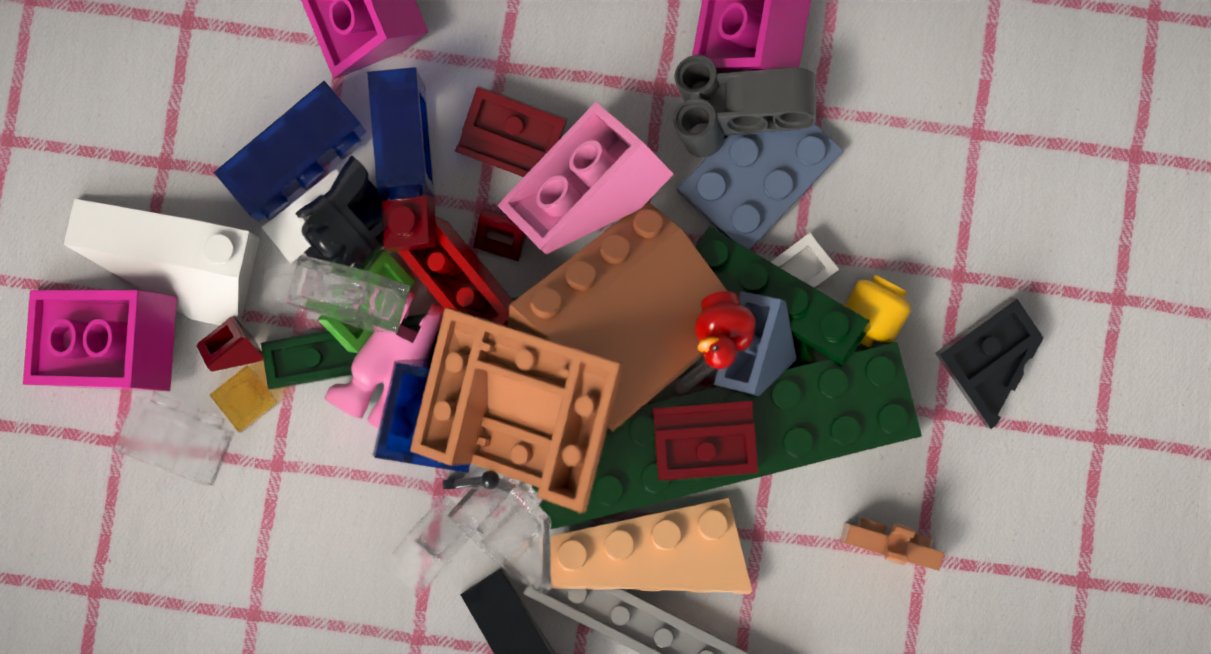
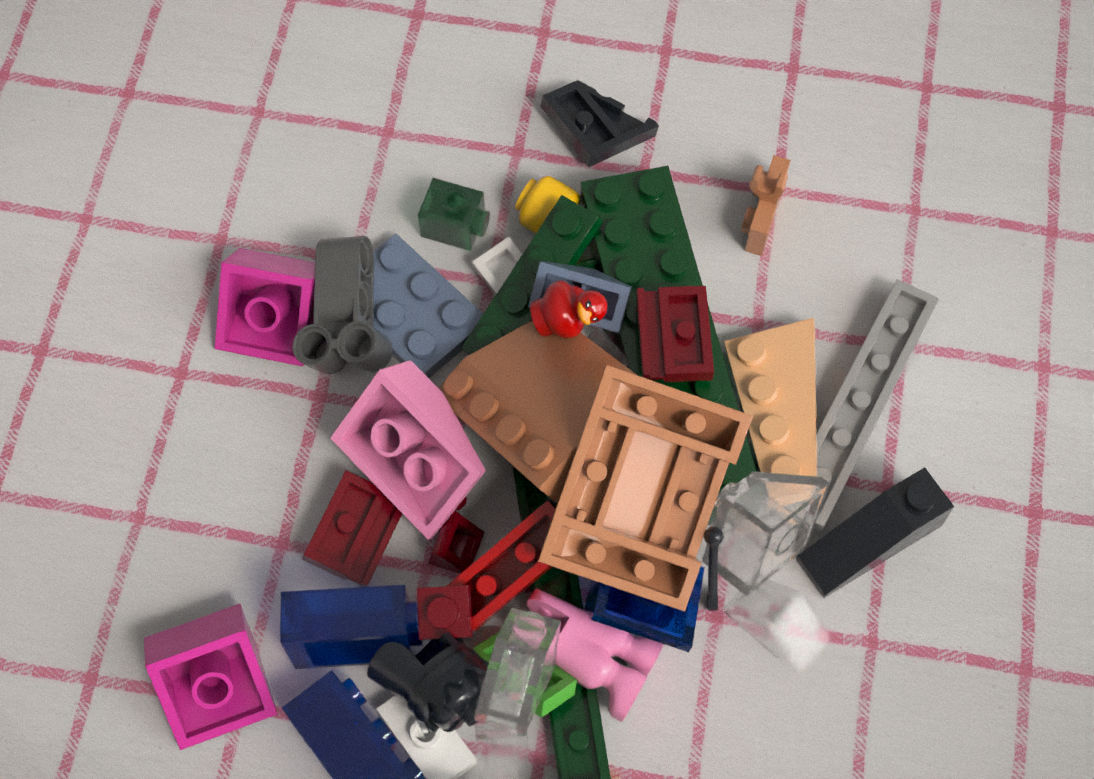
camera: 90 degrees left, 20 degrees down
(866, 210) = (453, 214): none -> clear green brick

